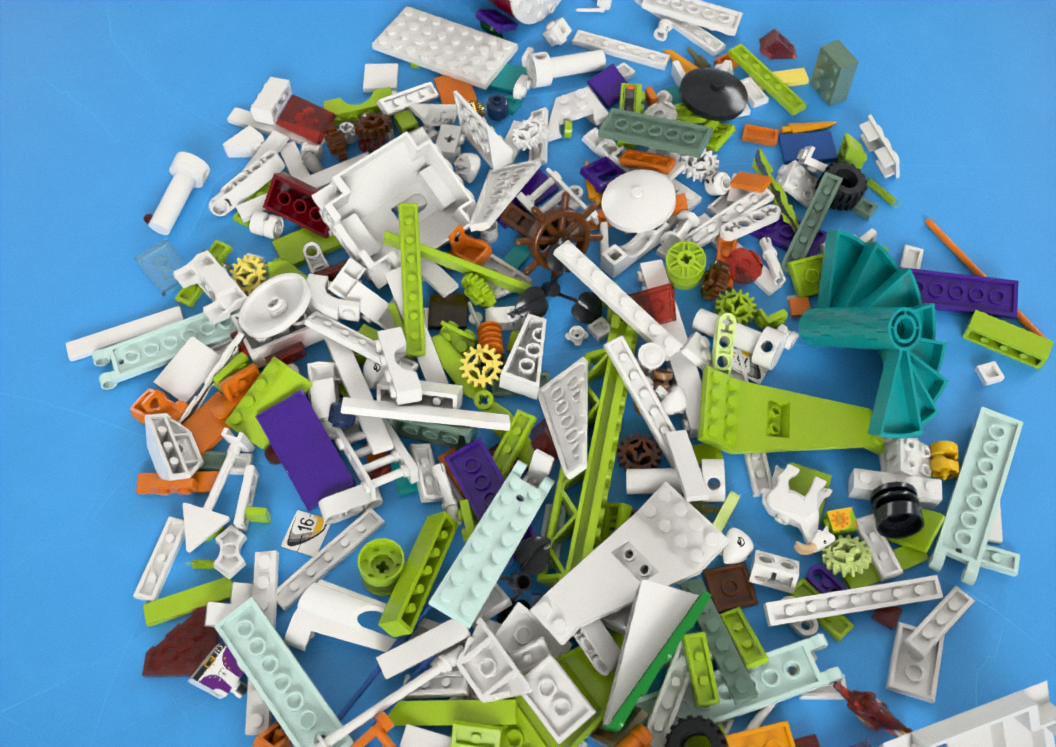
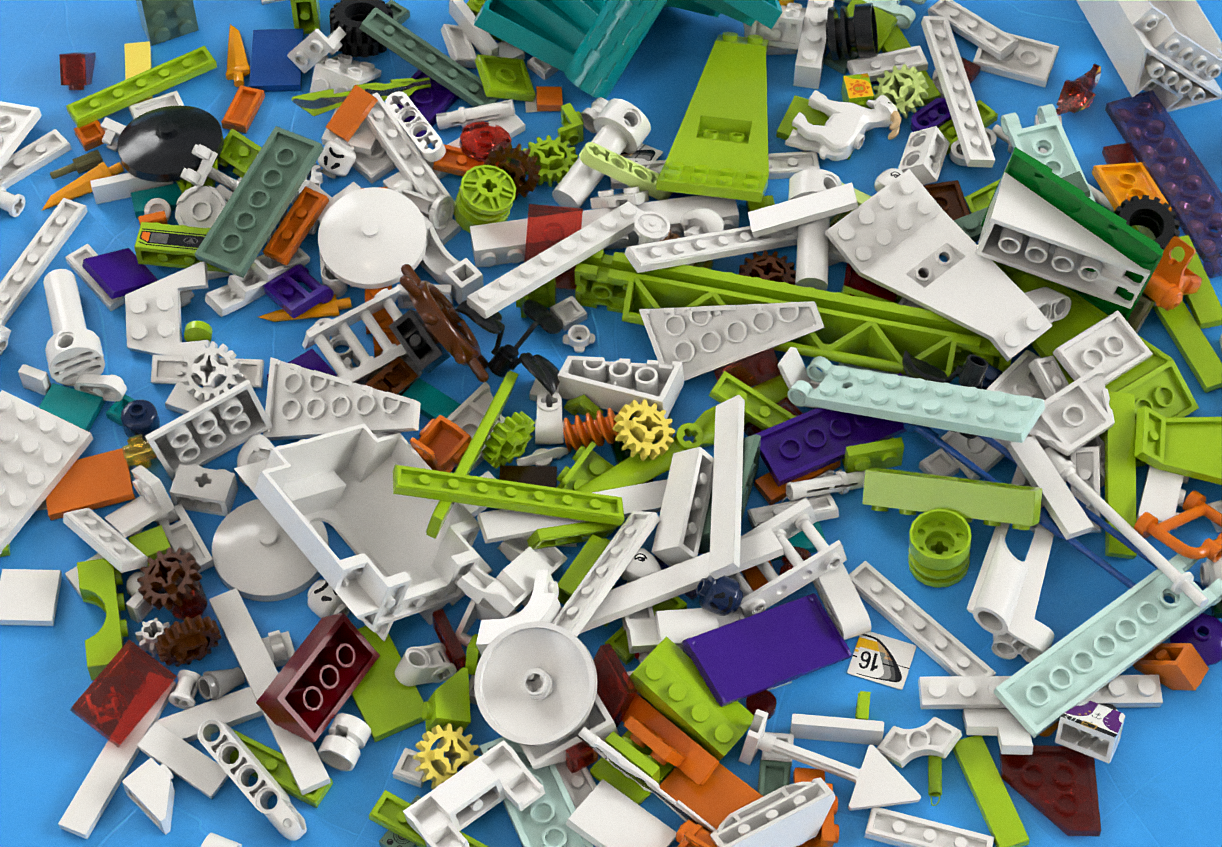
camera: 90 degrees left, 5 degrees down
(271, 100) = (62, 756): white brick -> none
(404, 384) = (626, 524): white arch -> none
(695, 102) = (206, 169): none -> white bar

